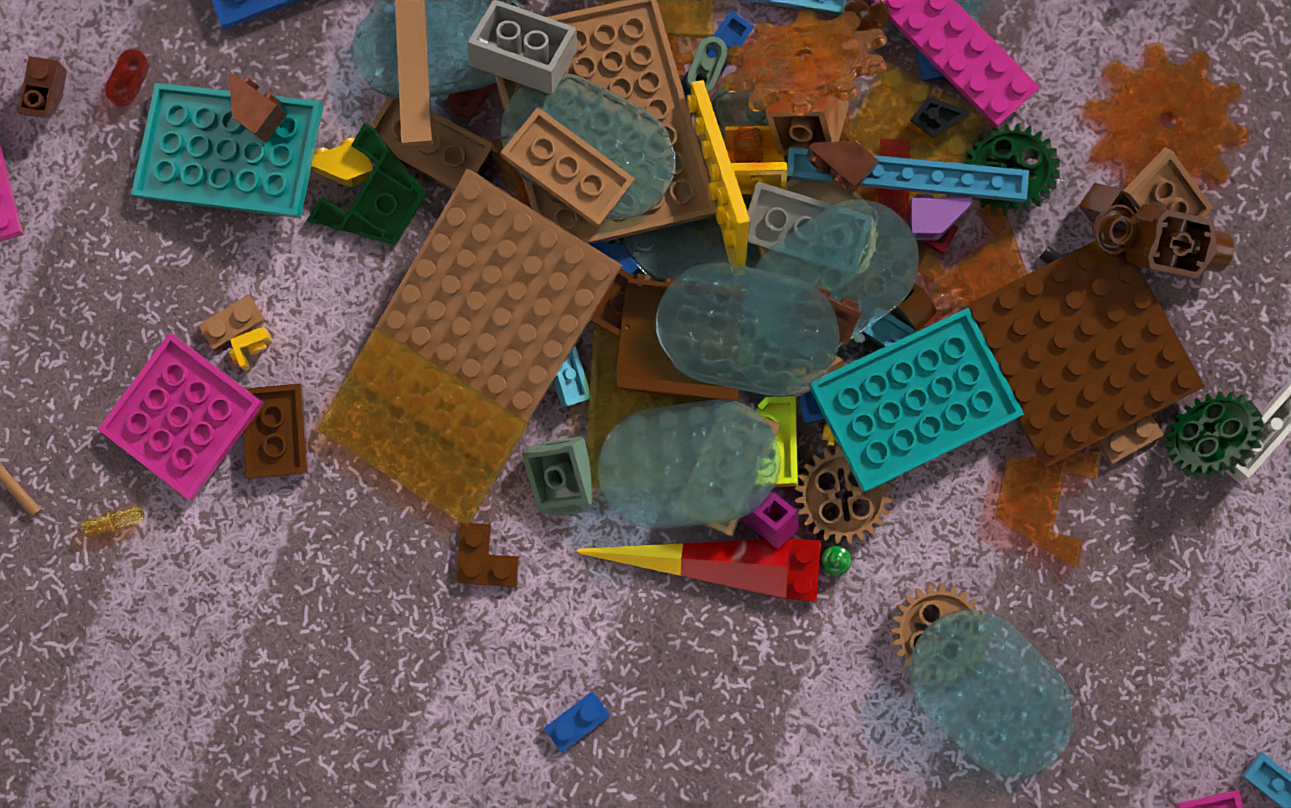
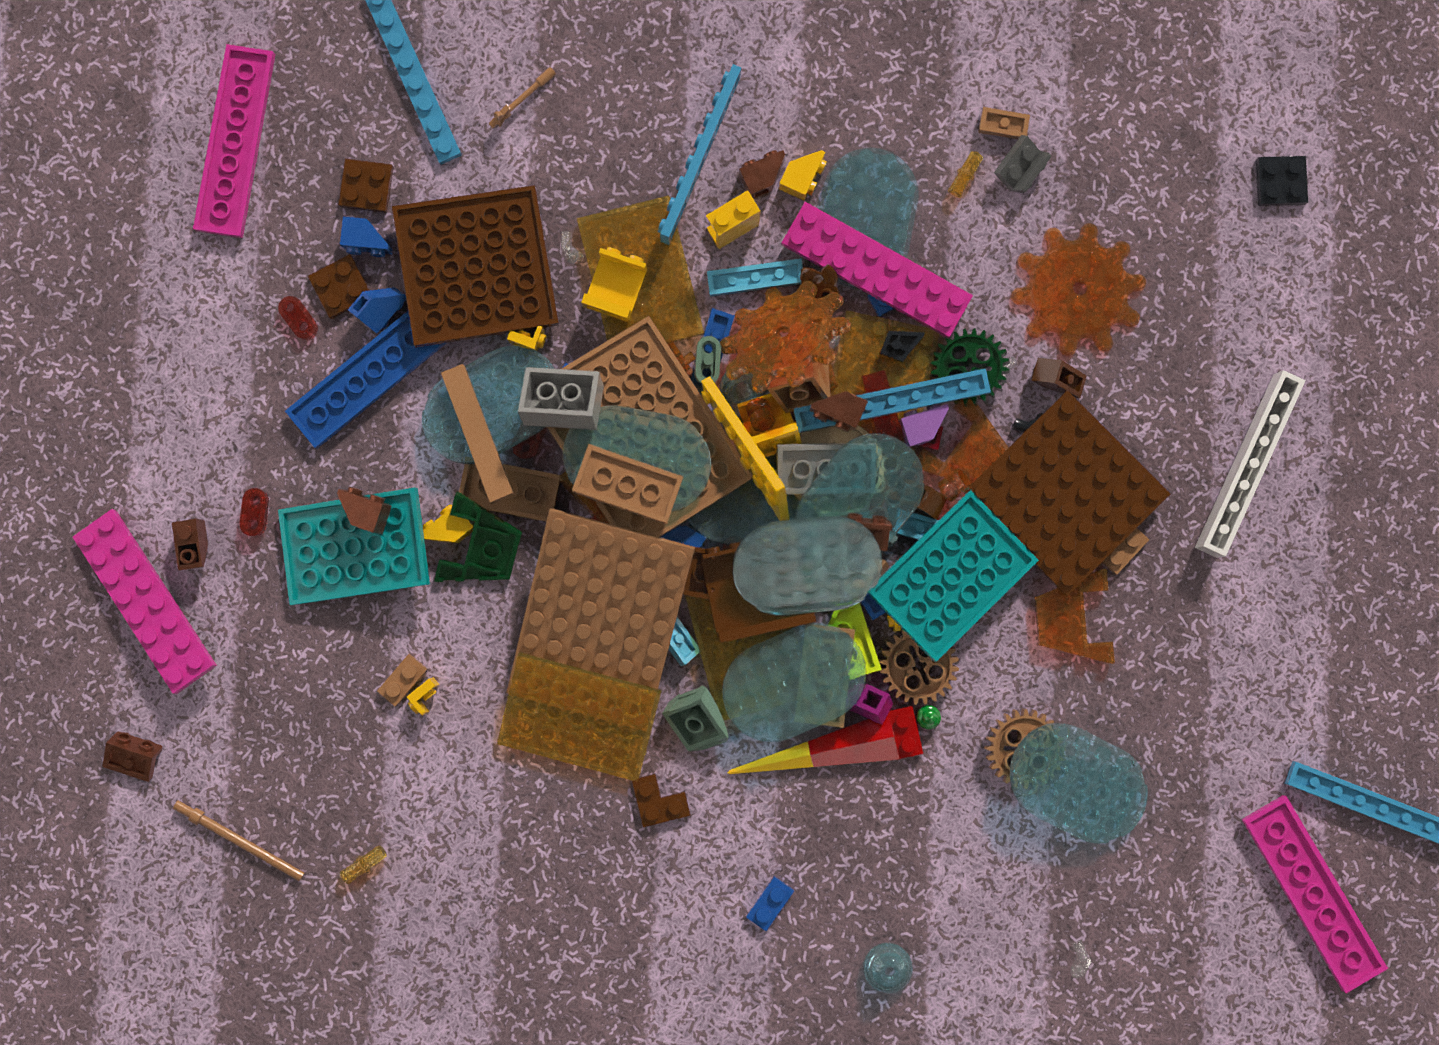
camera: 15 degrees left, 5 degrees up
(180, 416) = (388, 768): dark pink plate -> none
(277, 434) = (464, 755): reddish brown plate -> none
(1164, 239) = (1106, 390): reddish brown brick -> none
(1168, 186) = (1099, 354): medium nougat plate -> none
(1215, 435) = (1190, 531): dark green gear -> none

